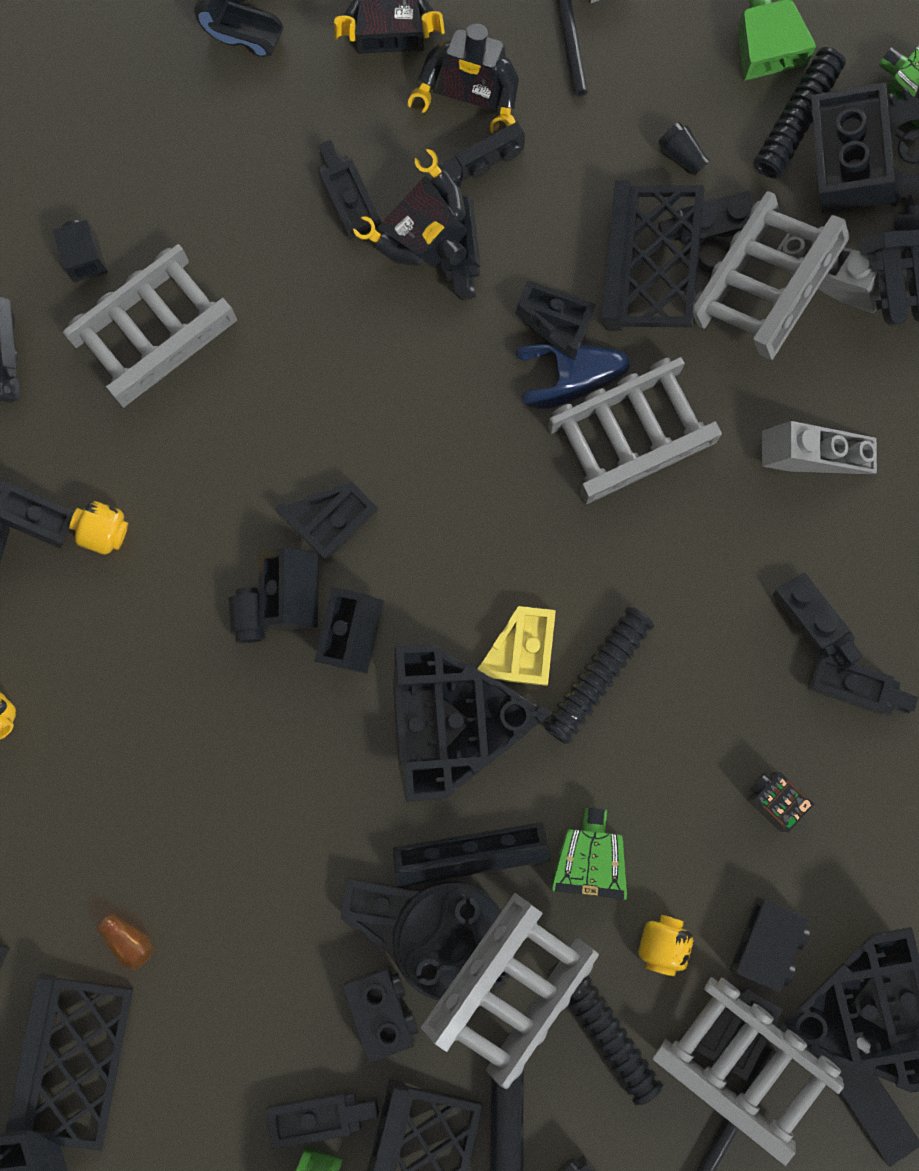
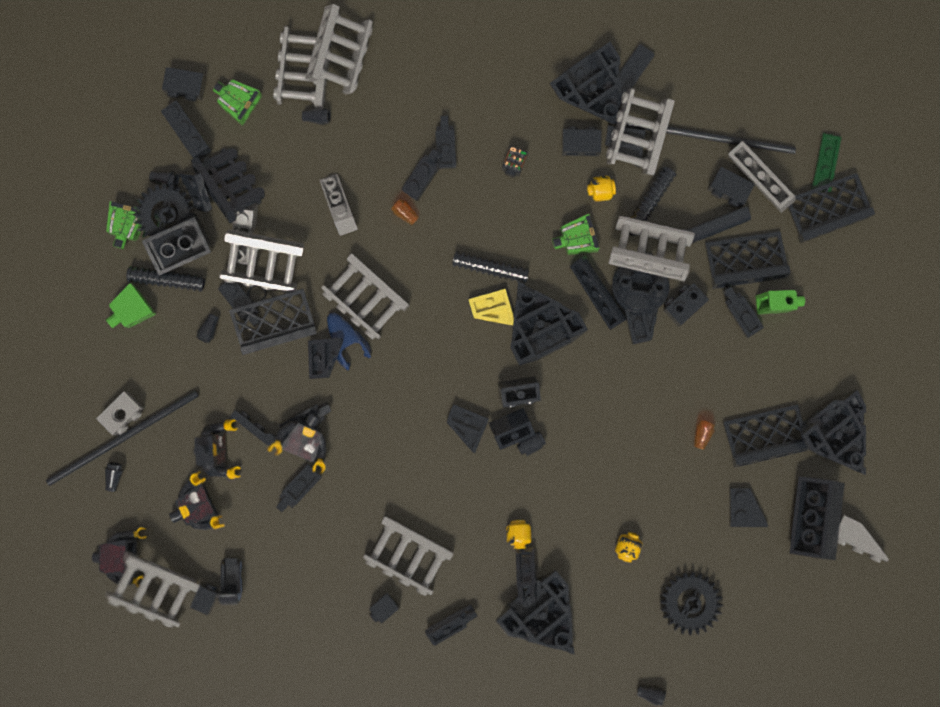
camera: 115 degrees left, 5 degrees up
(762, 561) = (404, 211): none -> clear orange cone

